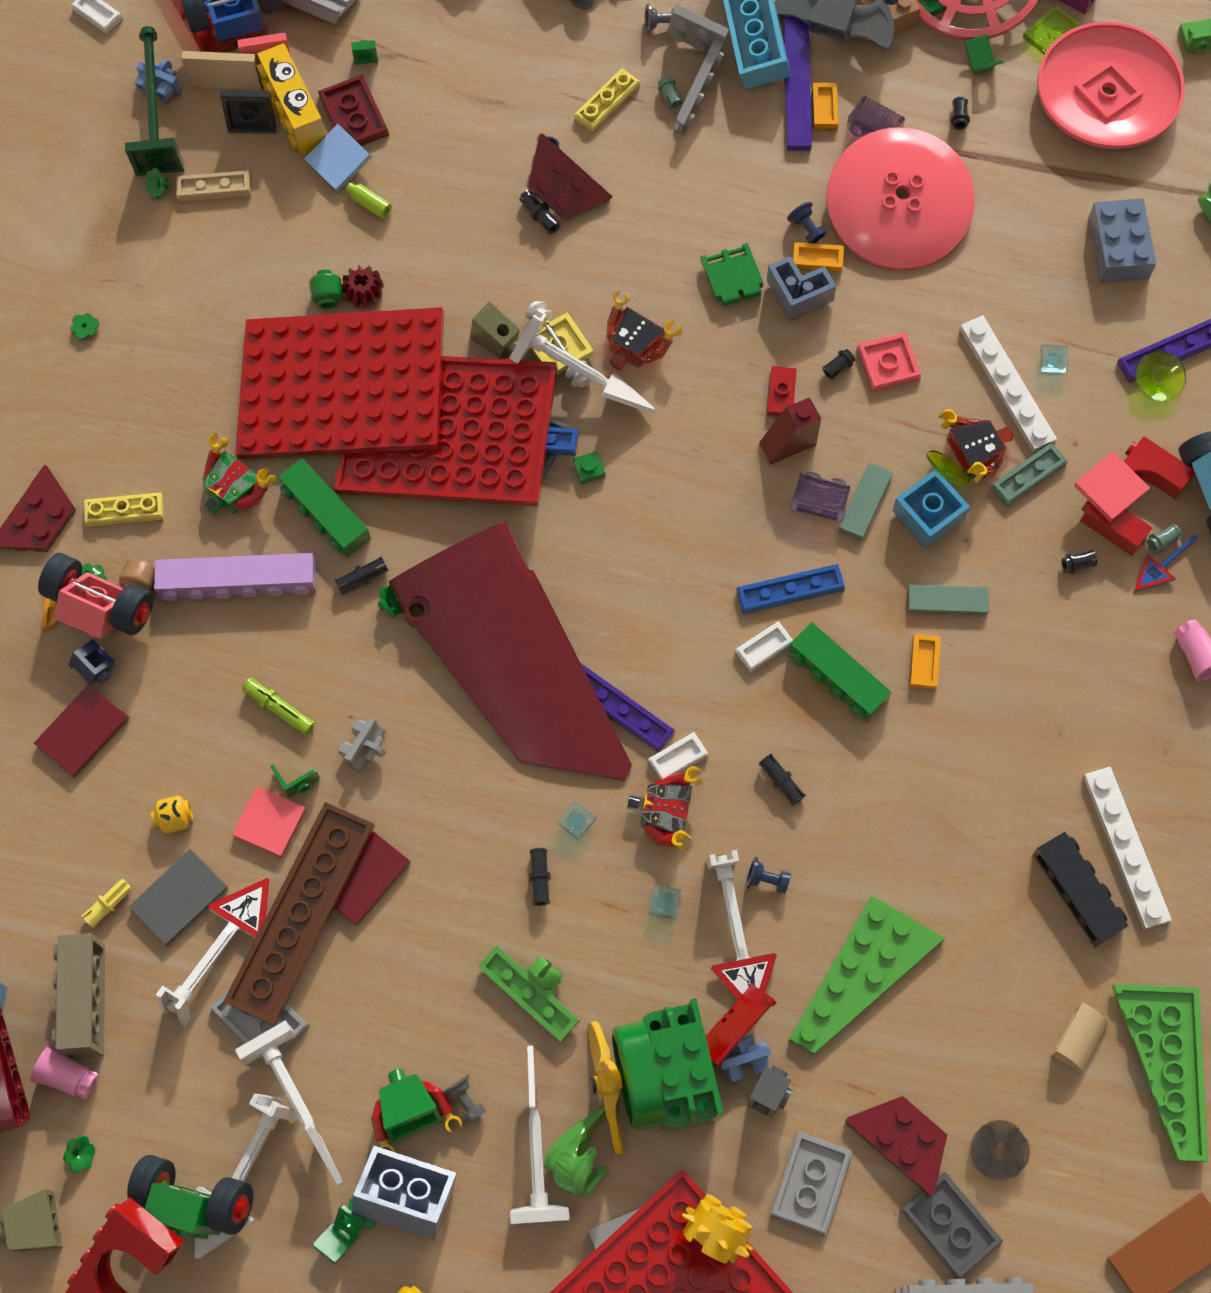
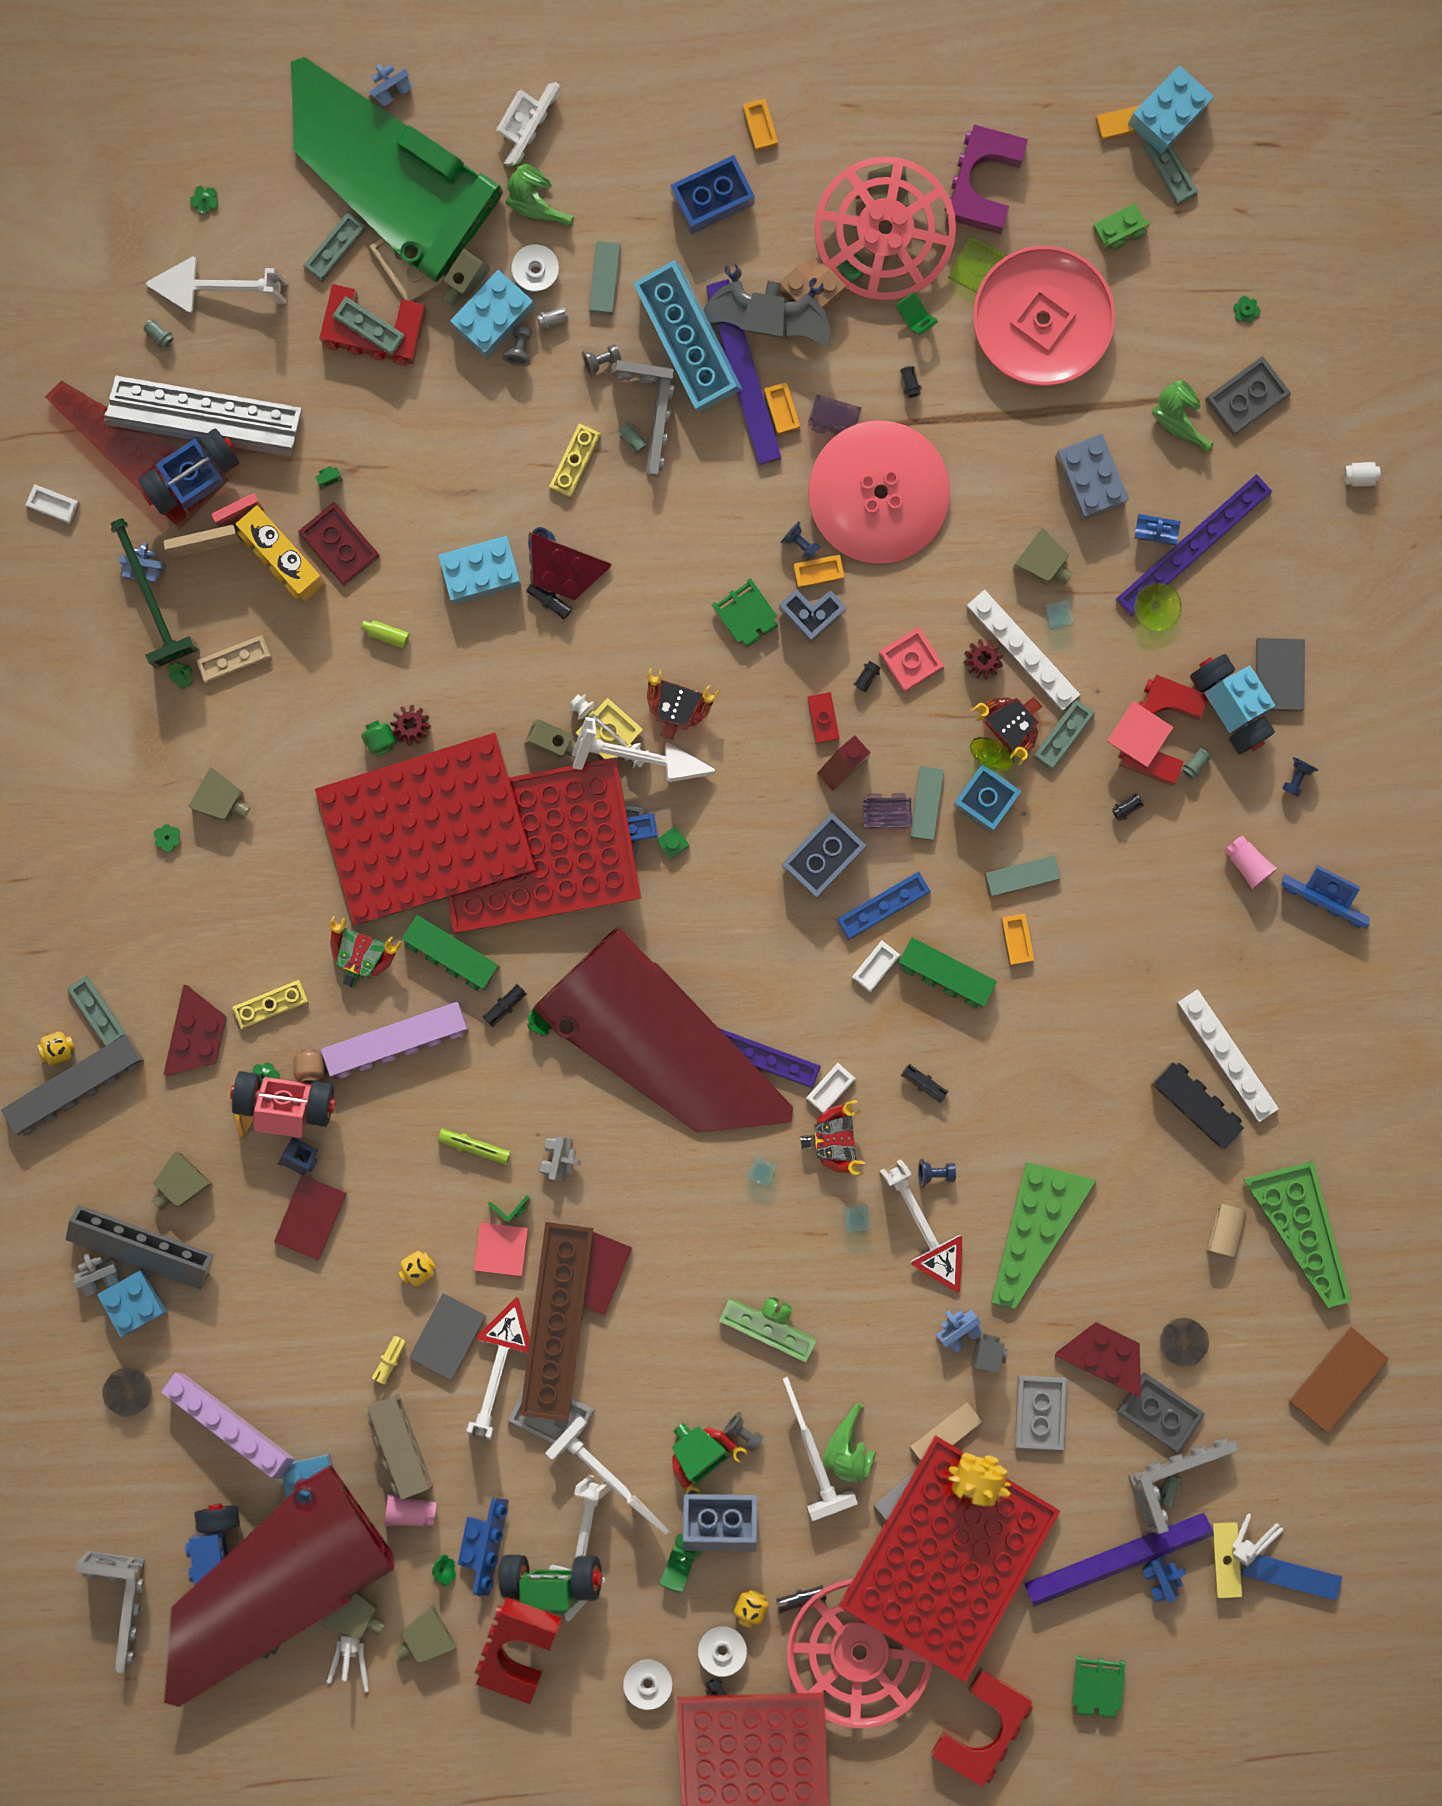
camera: 20 degrees left, 15 degrees up
(133, 1138) = (482, 1544): none -> blue bracket
(147, 301) = (218, 798): none -> olive torso
(248, 111) = (243, 578): black tile -> none
(338, 157) = (342, 598): light blue tile -> none
(480, 166) = (479, 570): none -> medium azure brick
(539, 877) = (745, 1228): black pin -> none
(661, 1072) = (895, 1364): green brick -> none
(702, 1169) = (950, 1429): none -> tan tile
(737, 1023) = (945, 1306): red door -> none
(741, 517) = (823, 855): none -> sand blue brick
(958, 370) = (988, 652): none -> dark red gear
(1051, 303) = (1044, 560): none -> olive torso
(1155, 573) = (1194, 797): piece -> none
(1178, 304) = (1157, 529): none -> blue hips

